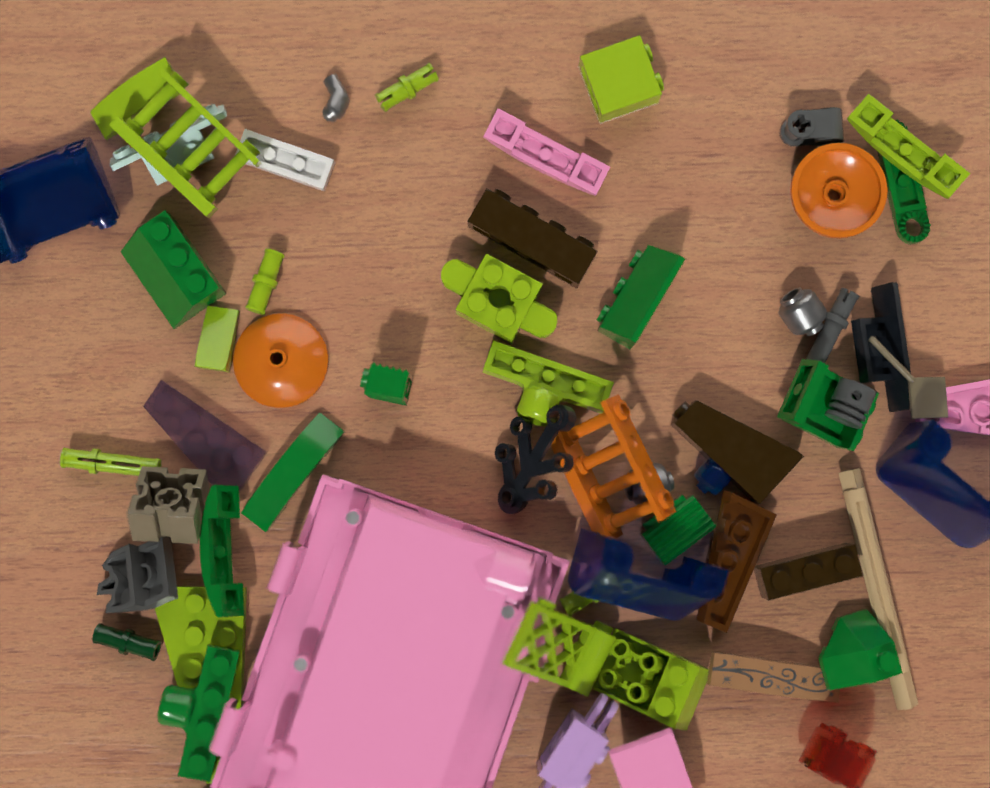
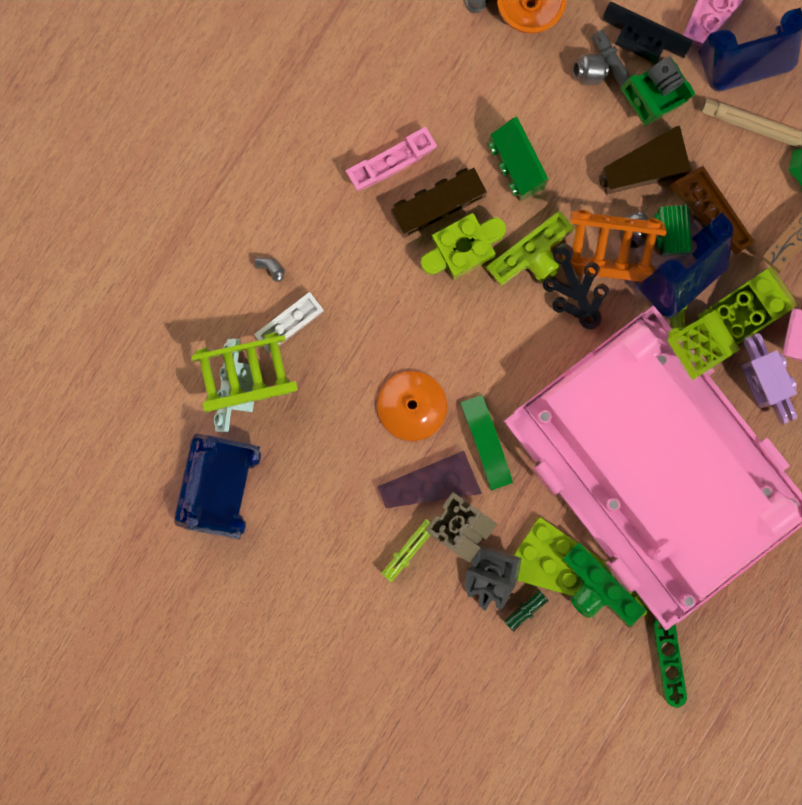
camera: 55 degrees left, 0 degrees up
(131, 97) = (189, 391): lime slope -> none
(171, 269) = (312, 436): green slope -> none
(216, 551) = (508, 518): green slope -> none
(217, 339) = (373, 435): lime slope -> none
(264, 281) = (357, 383): lime pin -> none
(386, 384) = (473, 346): green brick -> none
(406, 87) = (293, 218): lime pin -> none
(621, 79) = (375, 84): lime piece -> none
(711, 477) = (655, 189): clear blue piece -> none
(808, 571) = (749, 169): dark brown brick -> none
(926, 394) = (688, 28): dark tan piece -> none

